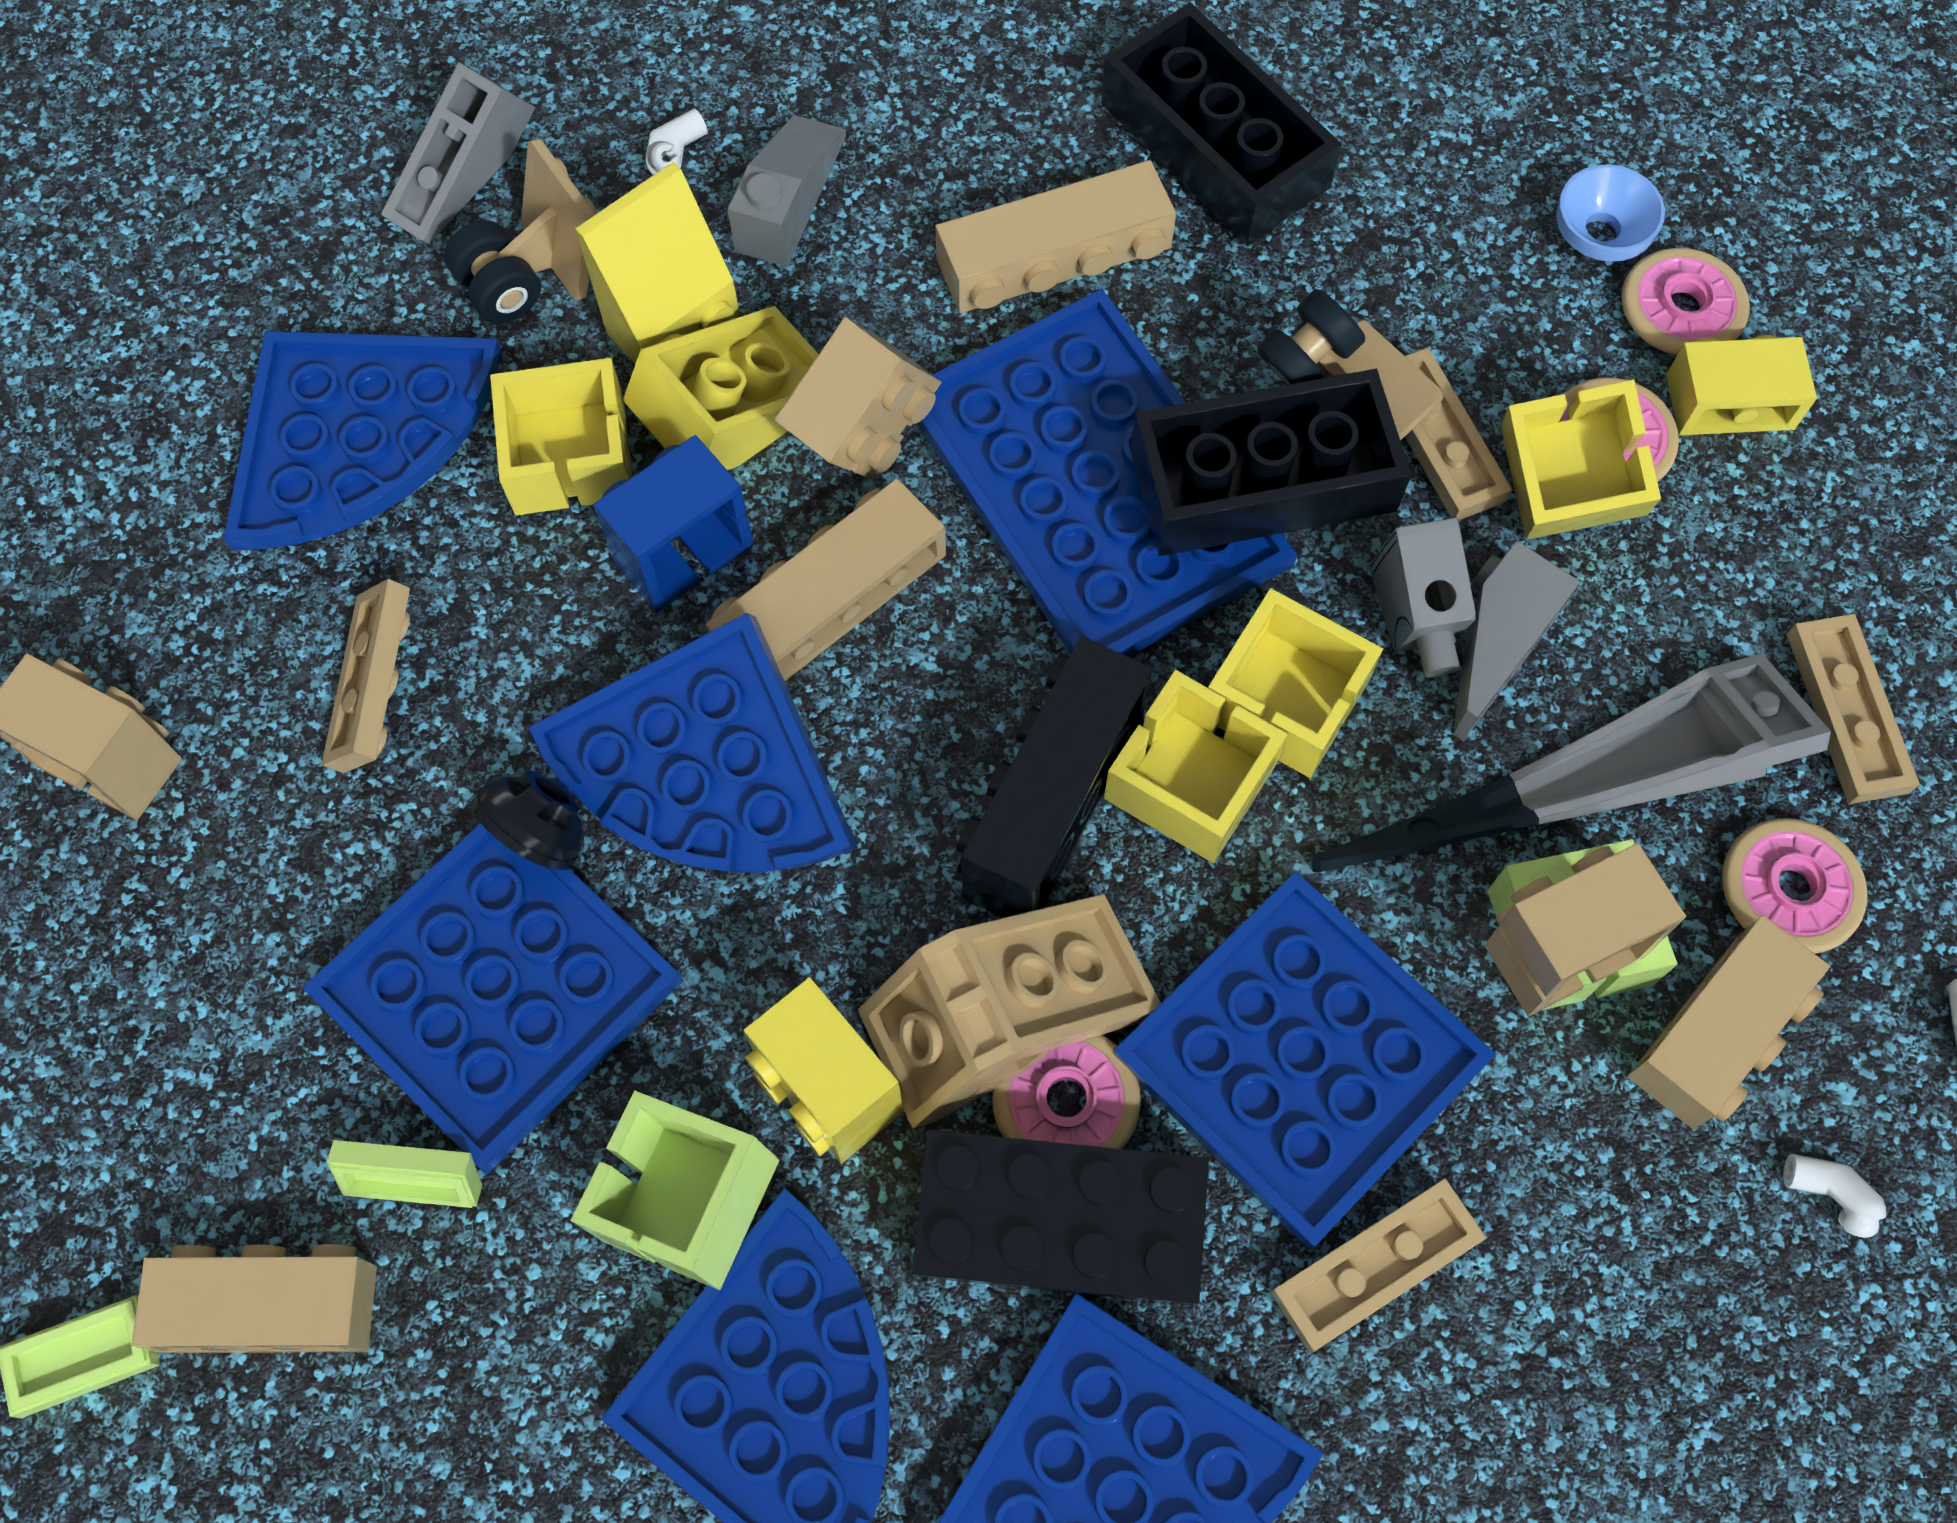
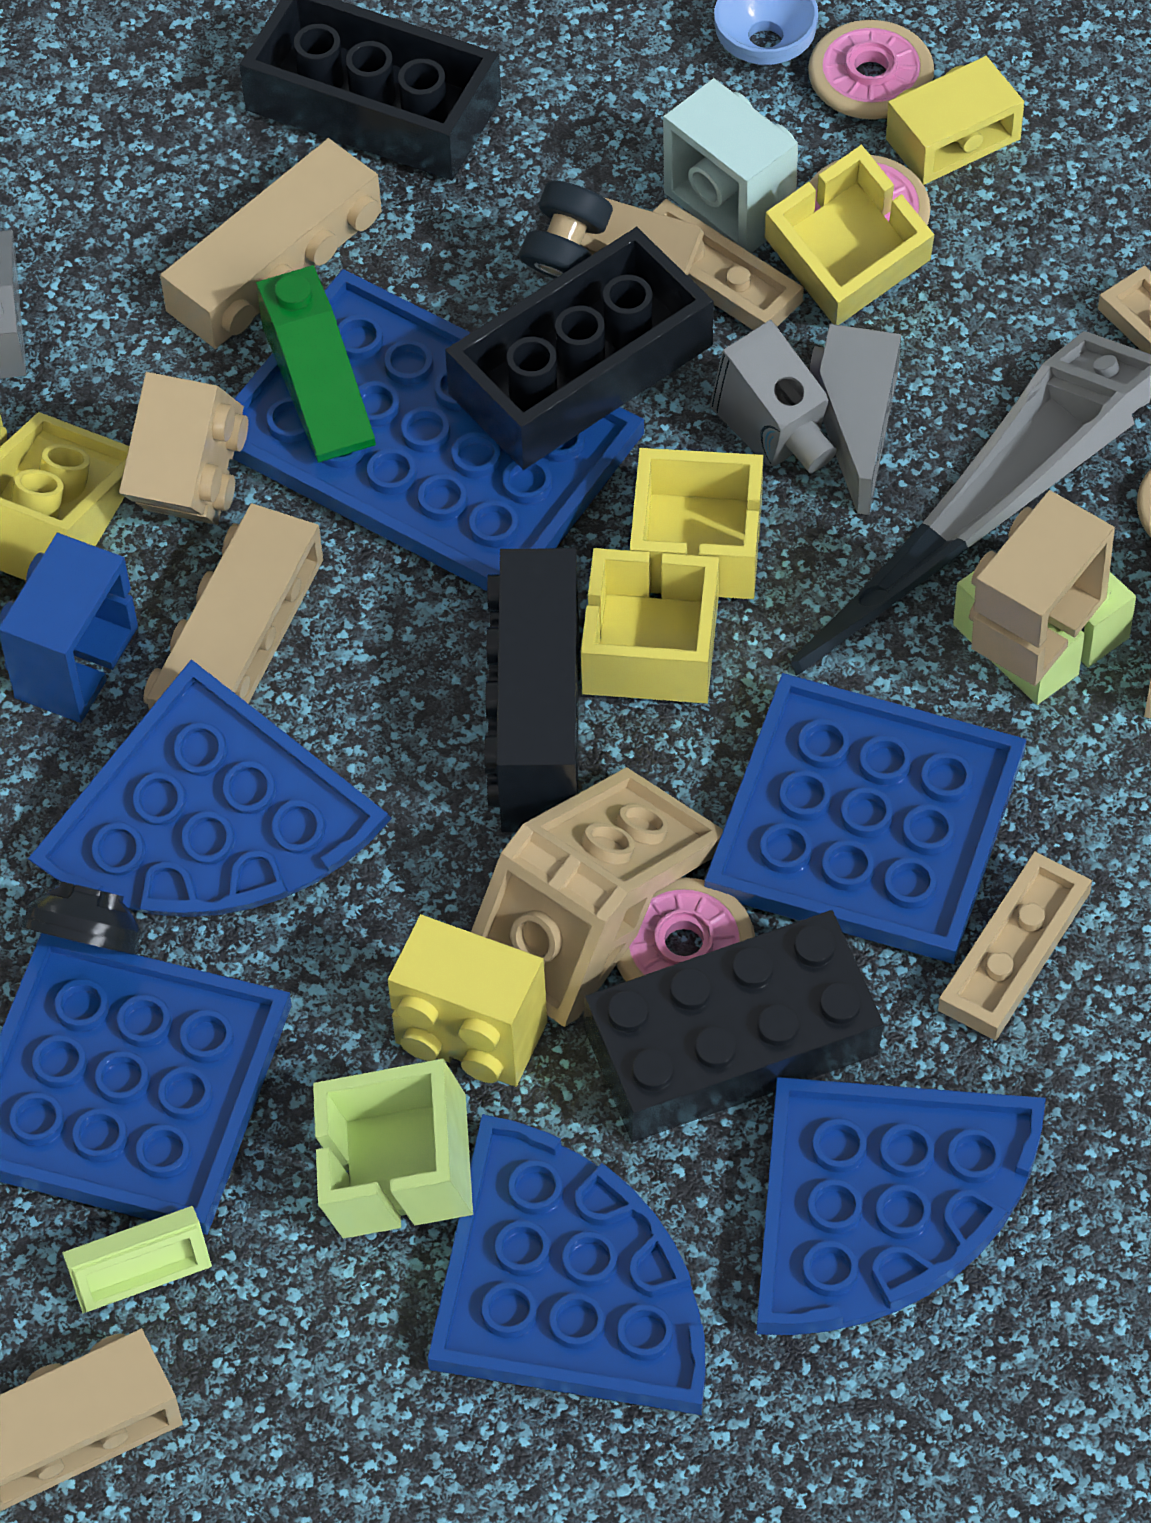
camera: 25 degrees left, 10 degrees down
(1022, 369) = (314, 363): none -> green slope
(1501, 338) = (727, 162): none -> light aqua brick

